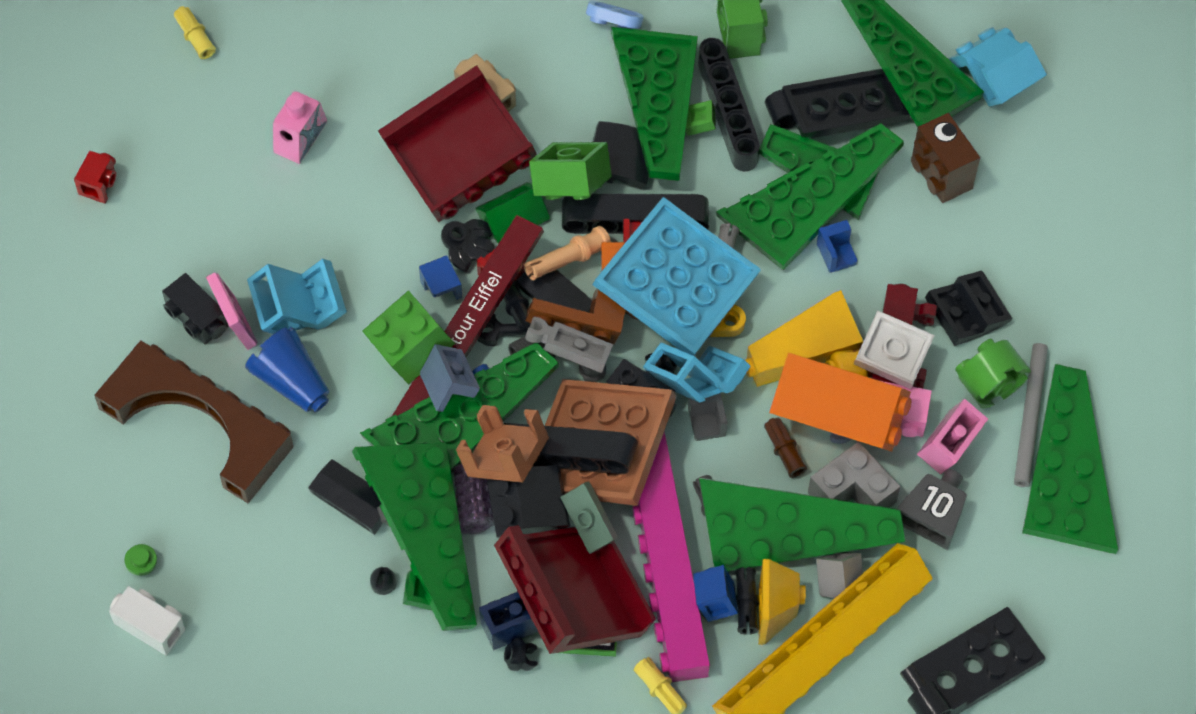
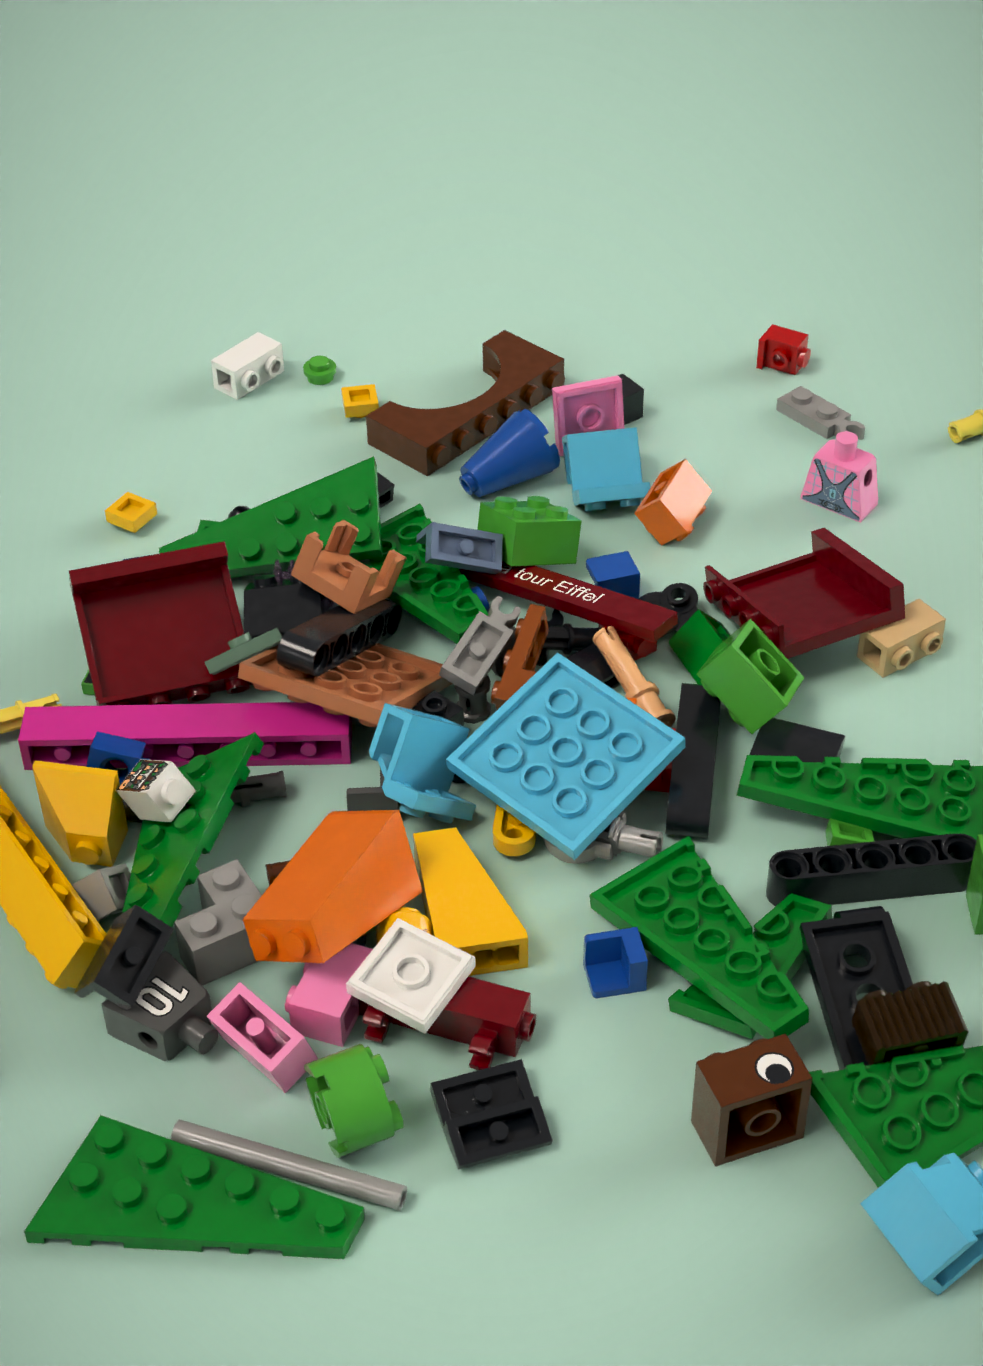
camera: 100 degrees right, 20 degrees down
(185, 151) = (817, 414): none -> light grey plate
(196, 513) = (359, 400): none -> yellow plate
(341, 242) = (673, 503): none -> orange brick
(385, 671) = (131, 512): none -> yellow plate
(765, 536) = (155, 790): none -> white brick
(875, 75) = (908, 1021): none -> dark brown brick
(923, 524) = (126, 957): none -> black panel

